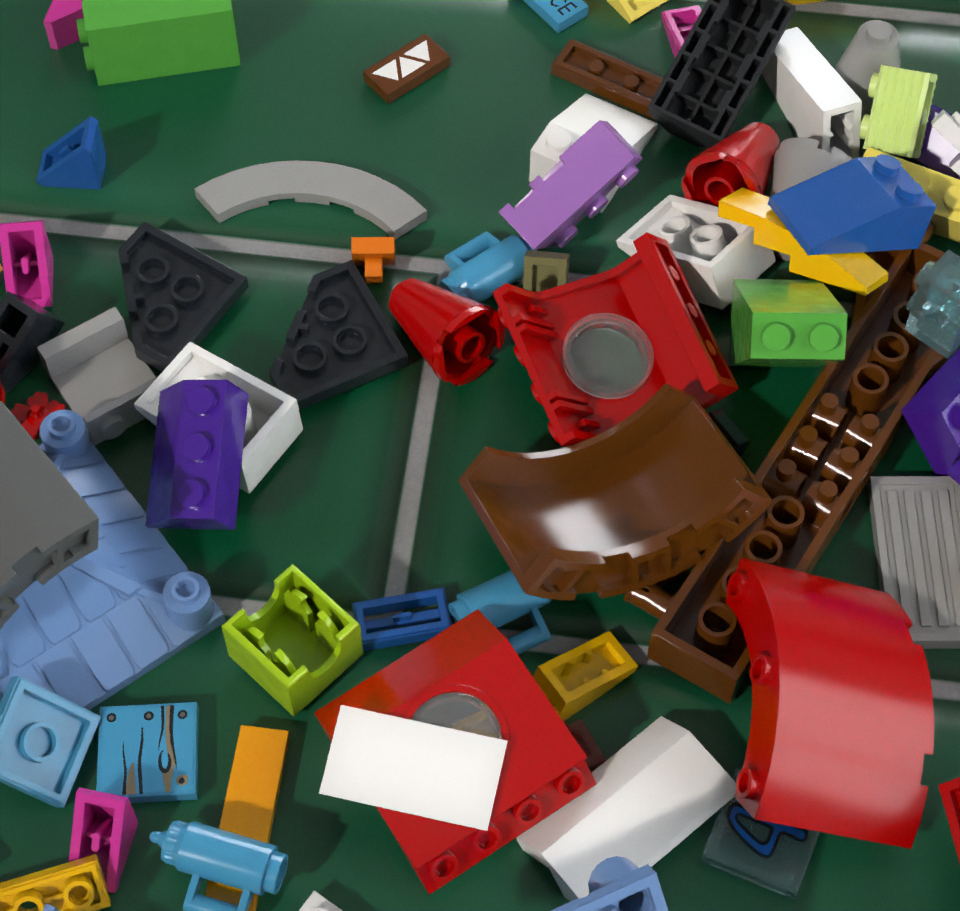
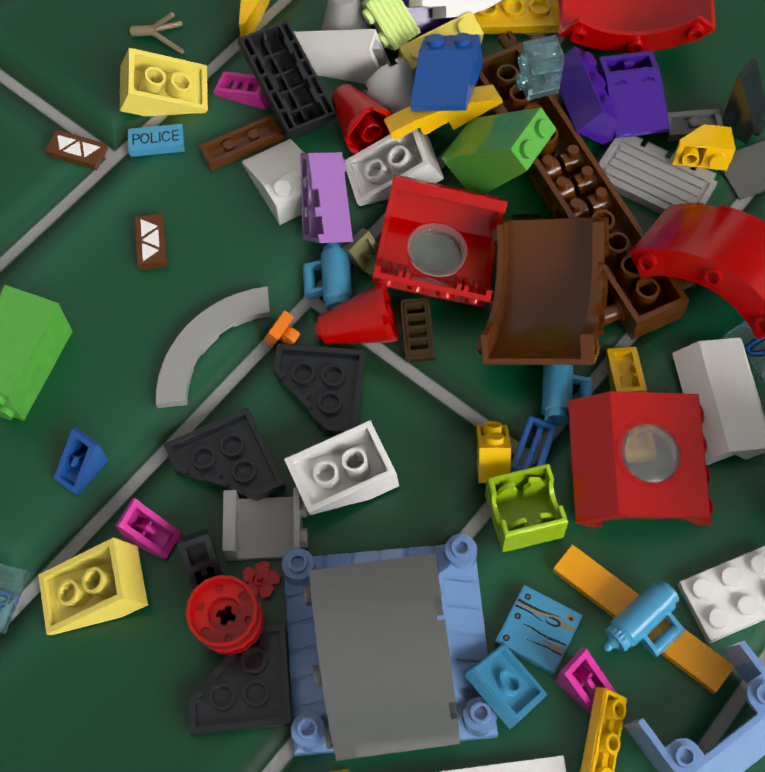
camera: 55 degrees left, 5 degrees up
(197, 456) = (376, 496): dark purple slope -> none
(359, 568) = (493, 450): none -> yellow slope
(413, 767) = (655, 483): white sticker -> none
(486, 377) = (411, 312): none -> dark brown slope

